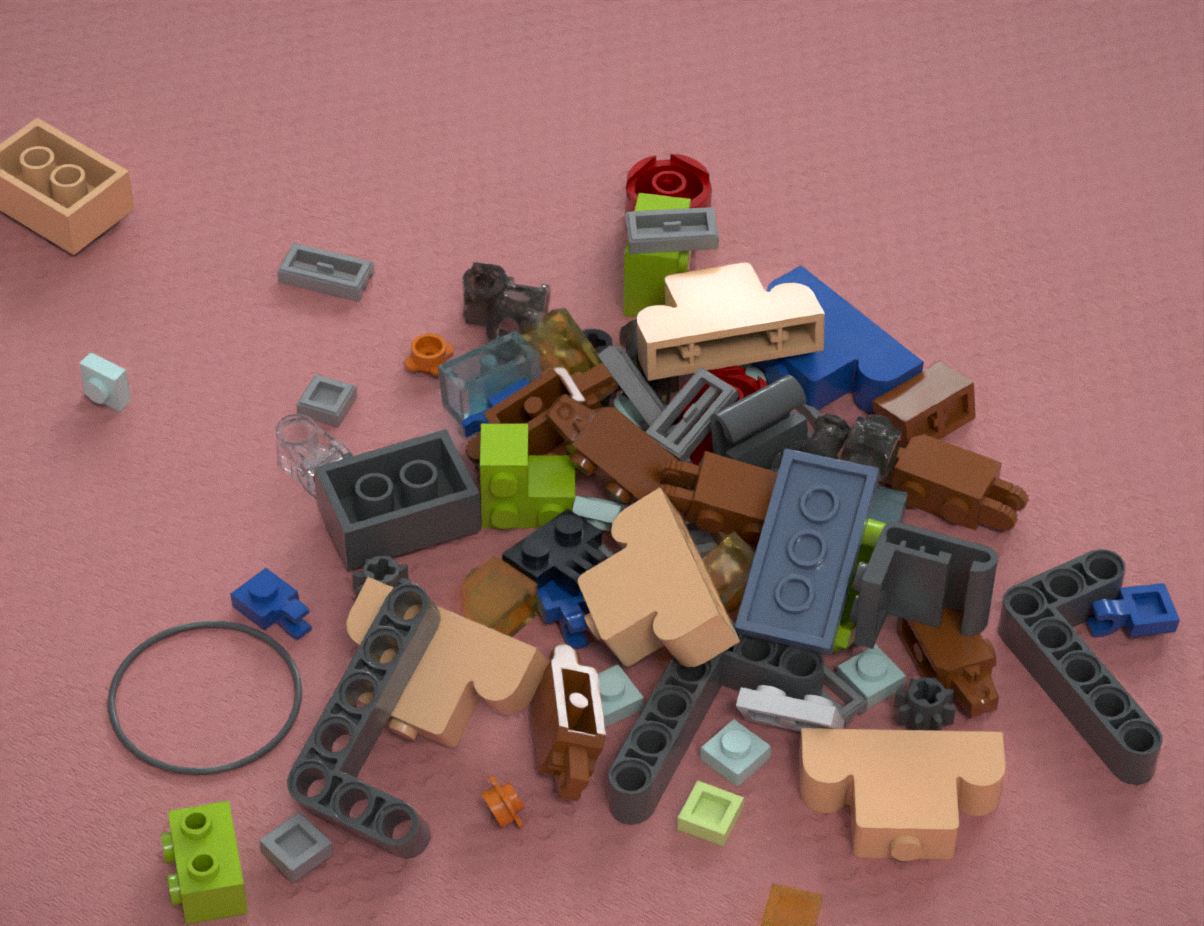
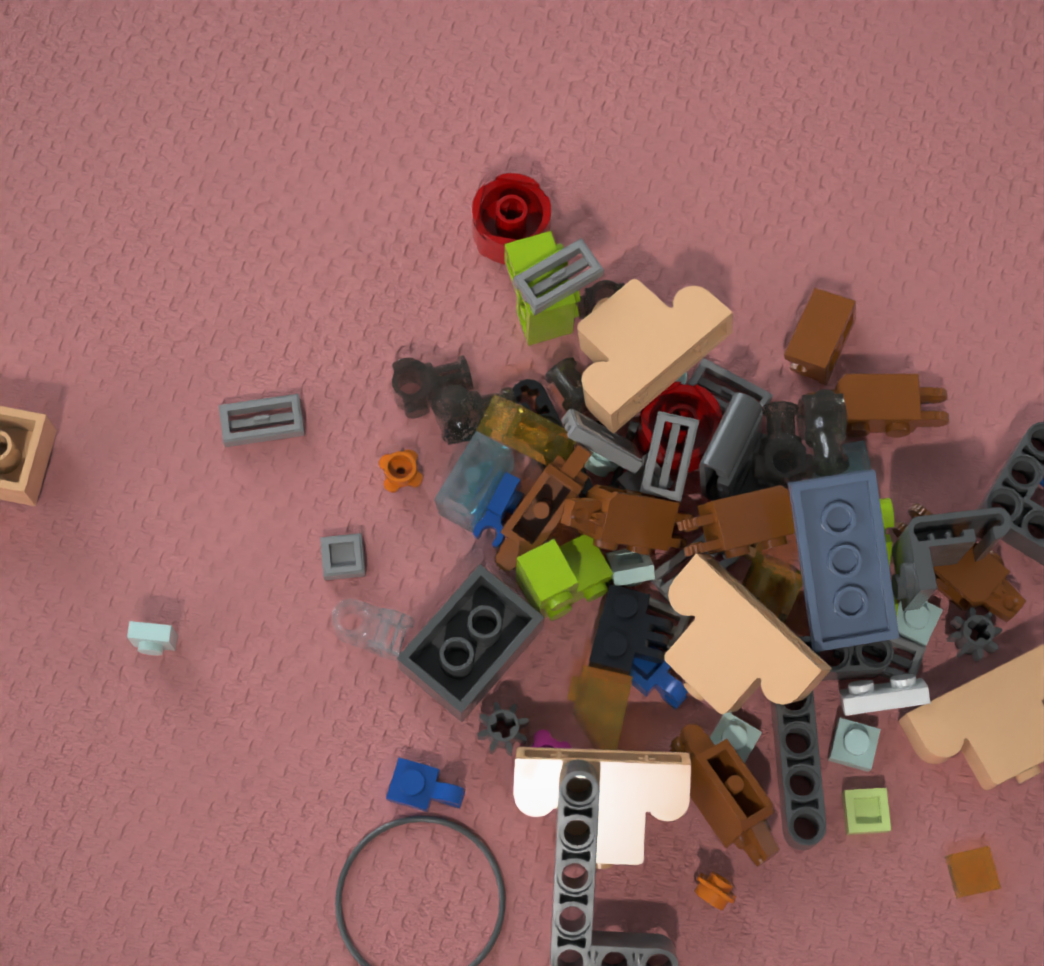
camera: 30 degrees left, 25 degrees up
(855, 353) = (758, 309): blue brick -> none

